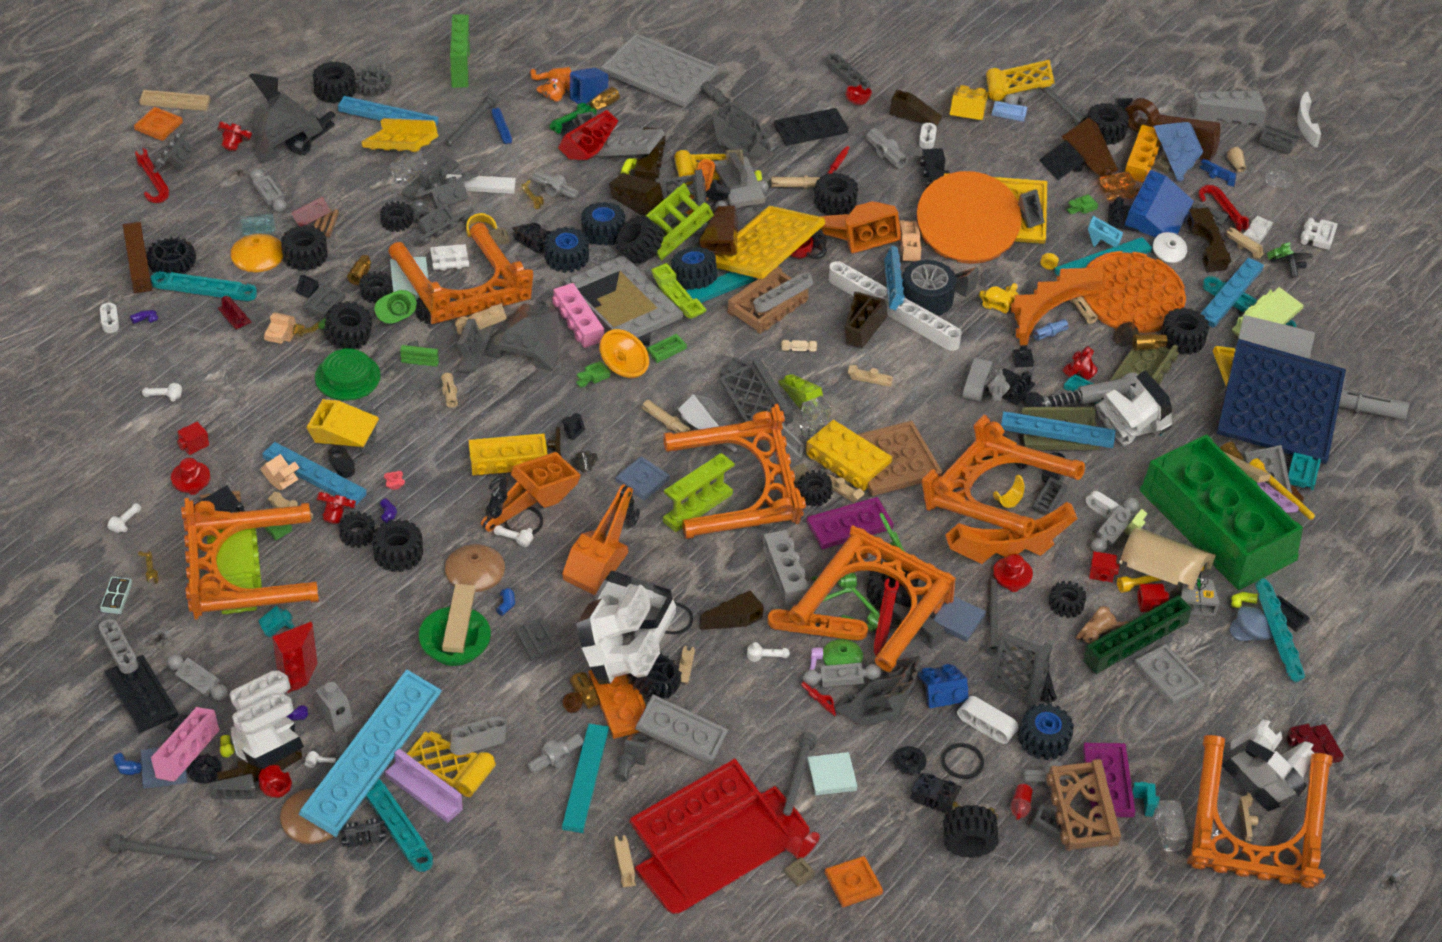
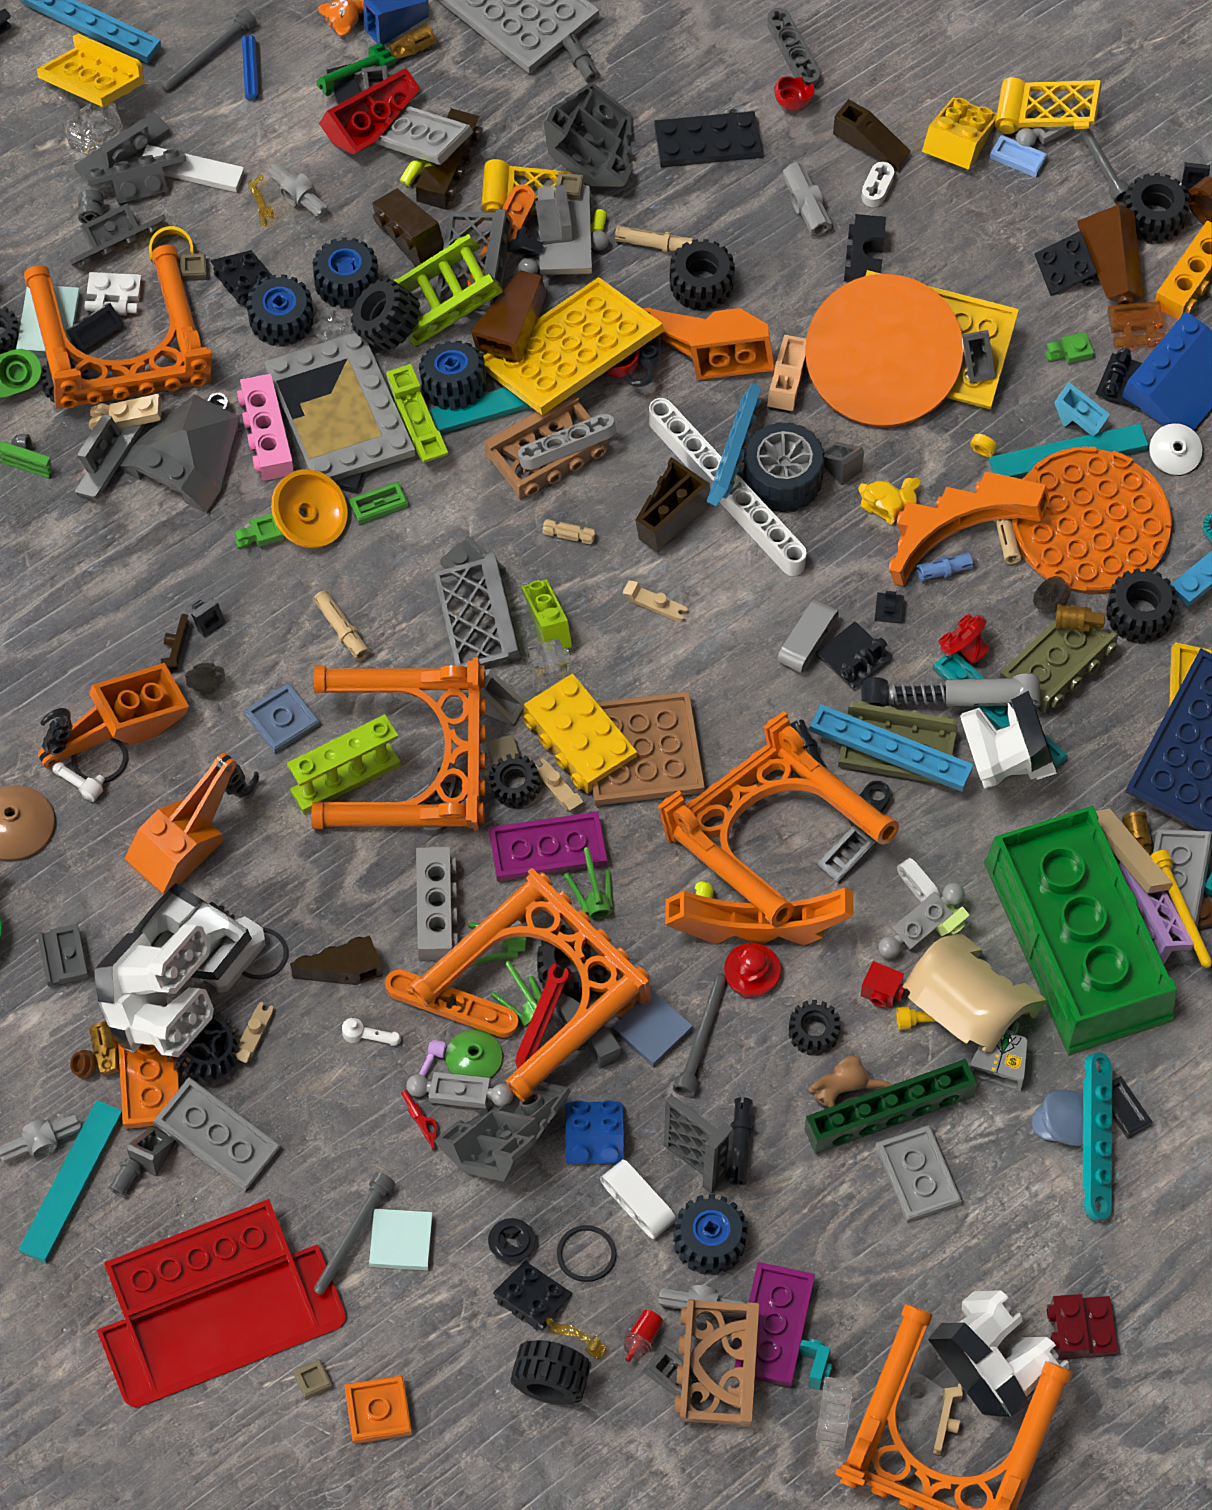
camera: 15 degrees right, 15 degrees up
(396, 223) = (55, 221): black tyre -> none
(445, 274) = (94, 327): none -> black tile
(451, 399) = (52, 524): tan pin -> none
(503, 453) = (103, 646): yellow bracket -> none
(508, 601) = (41, 888): blue arm -> none
(625, 862) = (84, 1320): tan piece -> none
(704, 414) = (396, 634): light grey wedge -> none
(801, 848) = (326, 1344): red helmet -> none
(834, 166) = (726, 211): red hand -> none
(997, 385) = (828, 654): light grey axle -> none
(1013, 496) = (792, 843): yellow helmet -> none
(1151, 596) = (935, 1048): red brick -> none
(1238, 598) = (1065, 1069): neon yellow arm -> none

